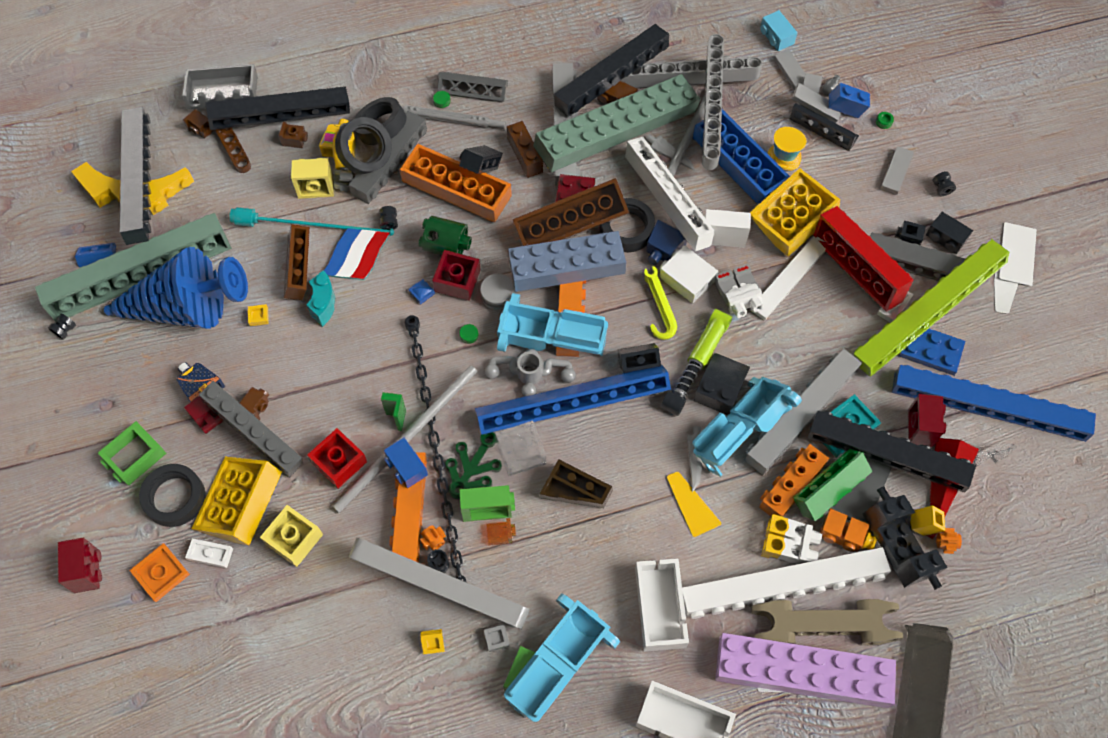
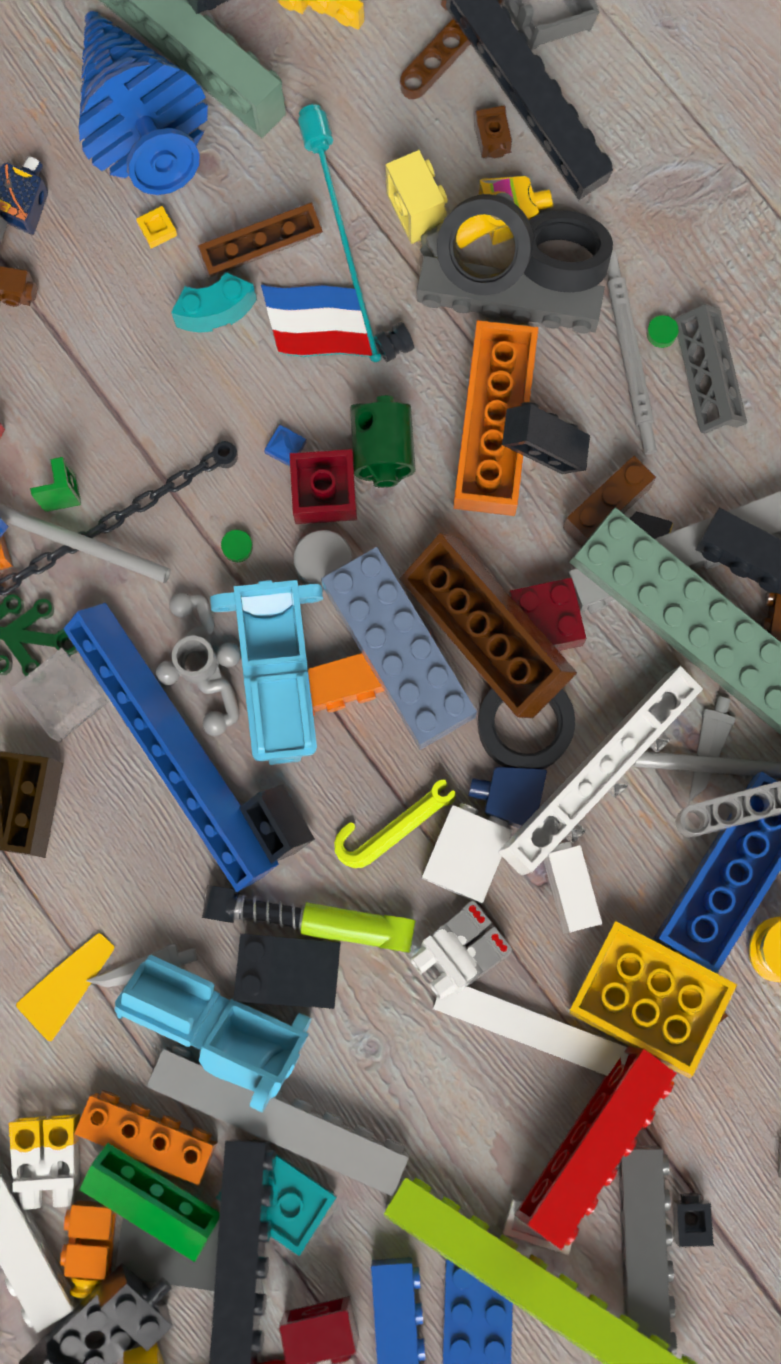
camera: 75 degrees right, 15 degrees up
(949, 232) = (723, 1292): black brick -> none

